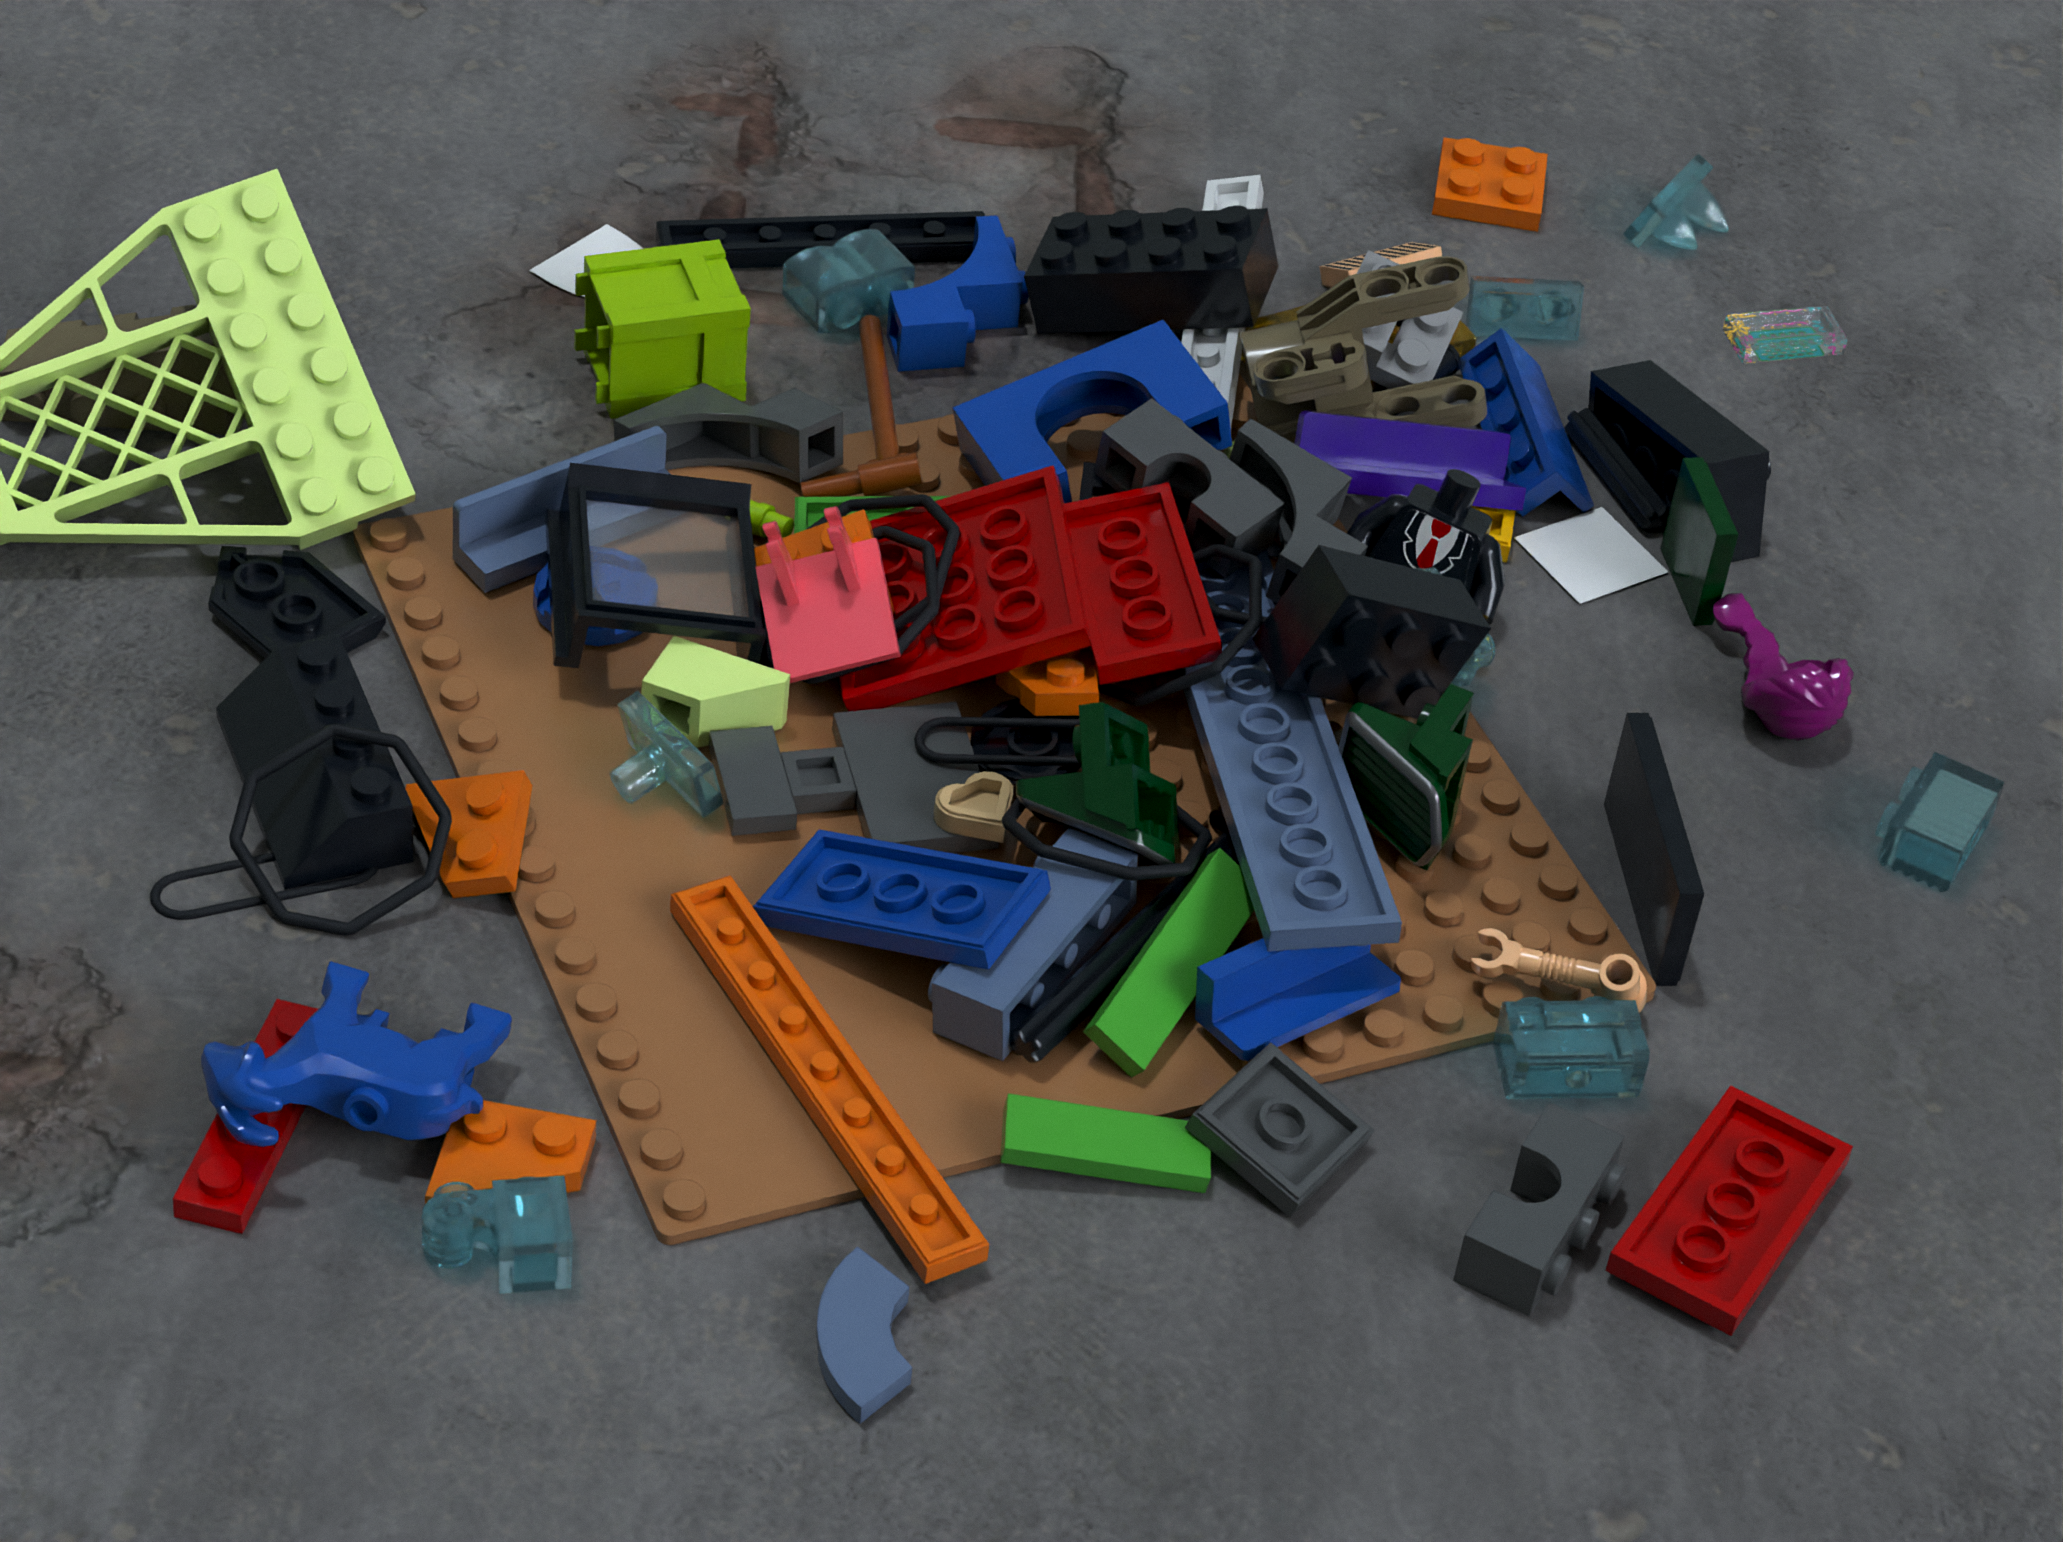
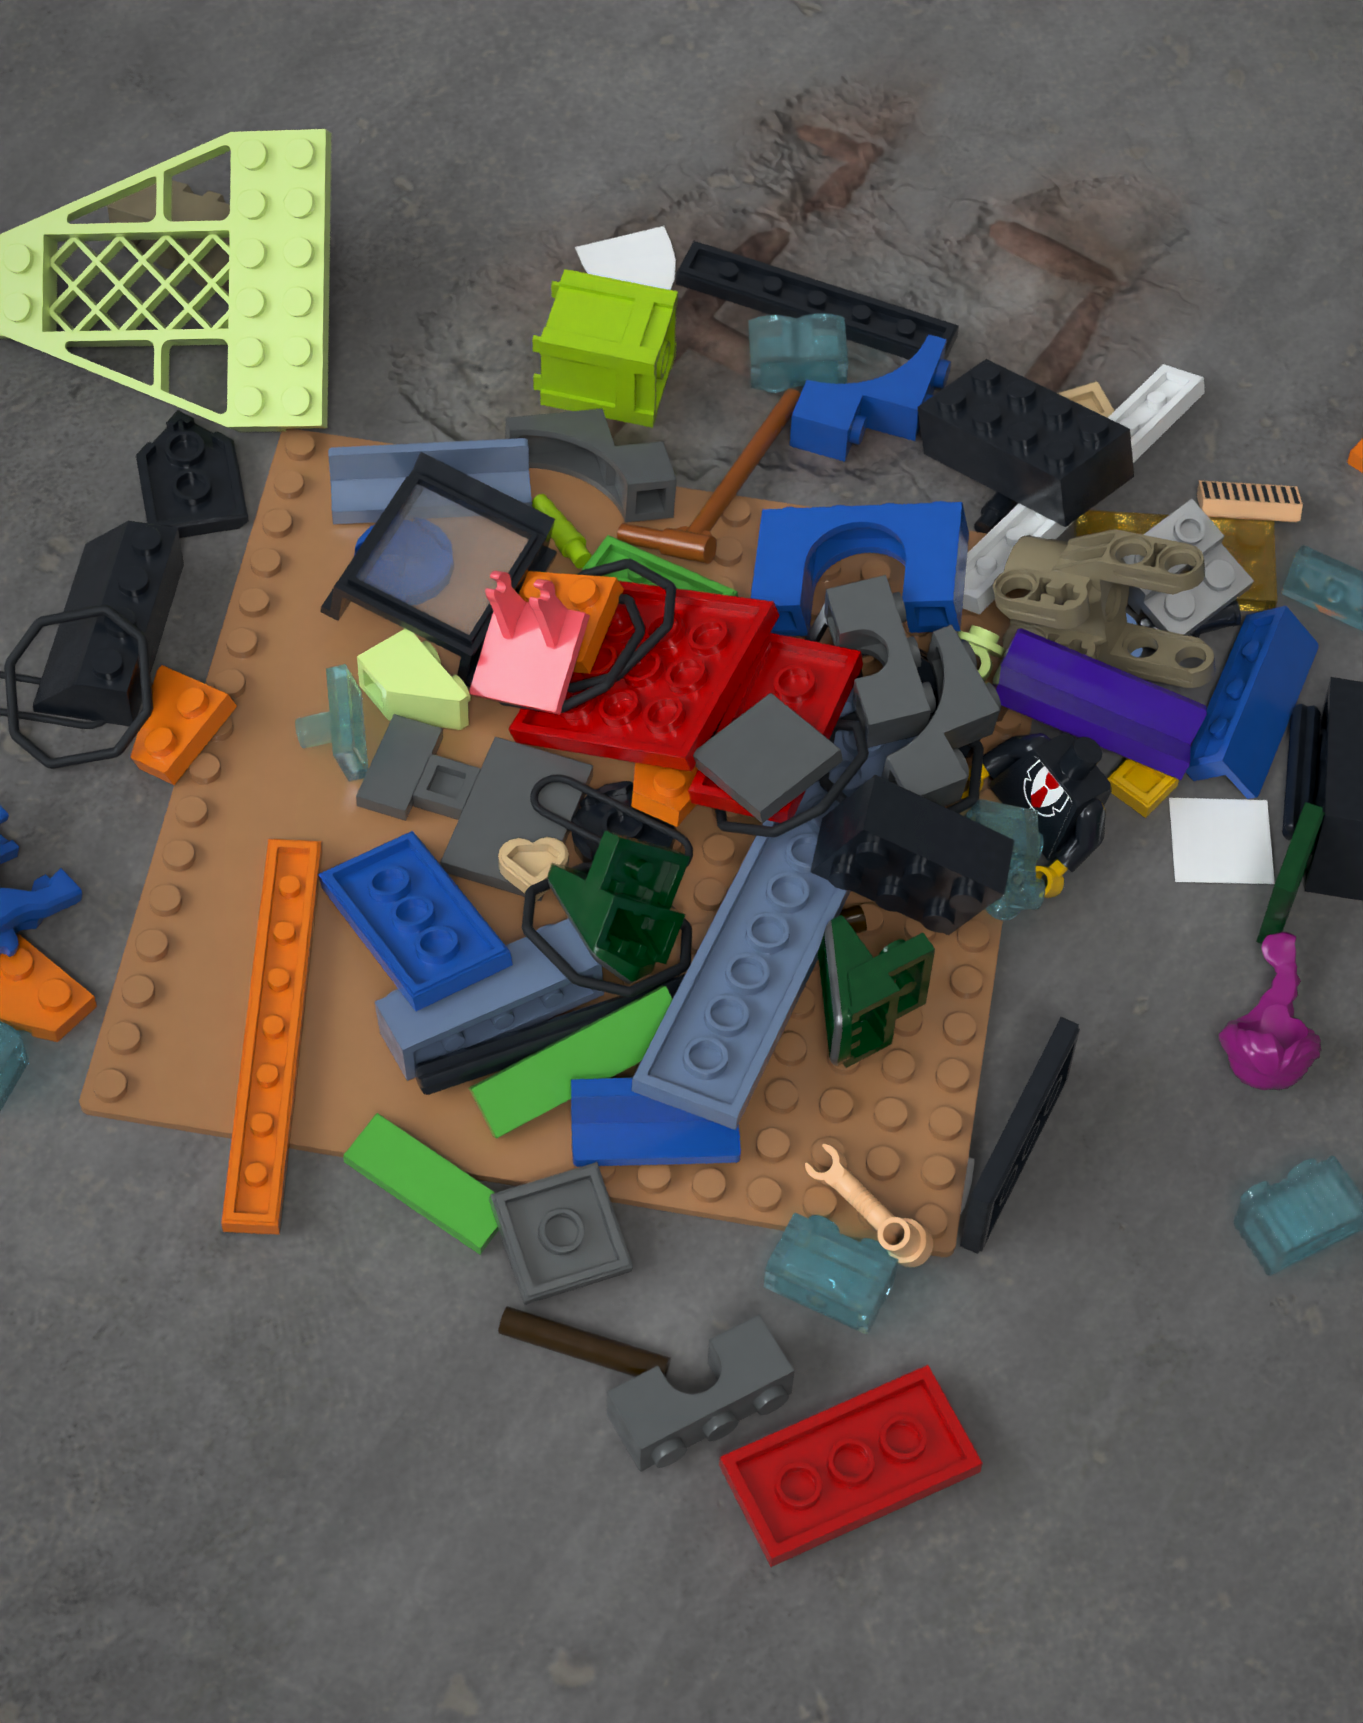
camera: 35 degrees right, 15 degrees up
(856, 1335) = (148, 1248): sand blue tile -> none
(1162, 600) = (767, 757): none -> dark grey tile
(1380, 1223) = (580, 1343): none -> dark brown piece

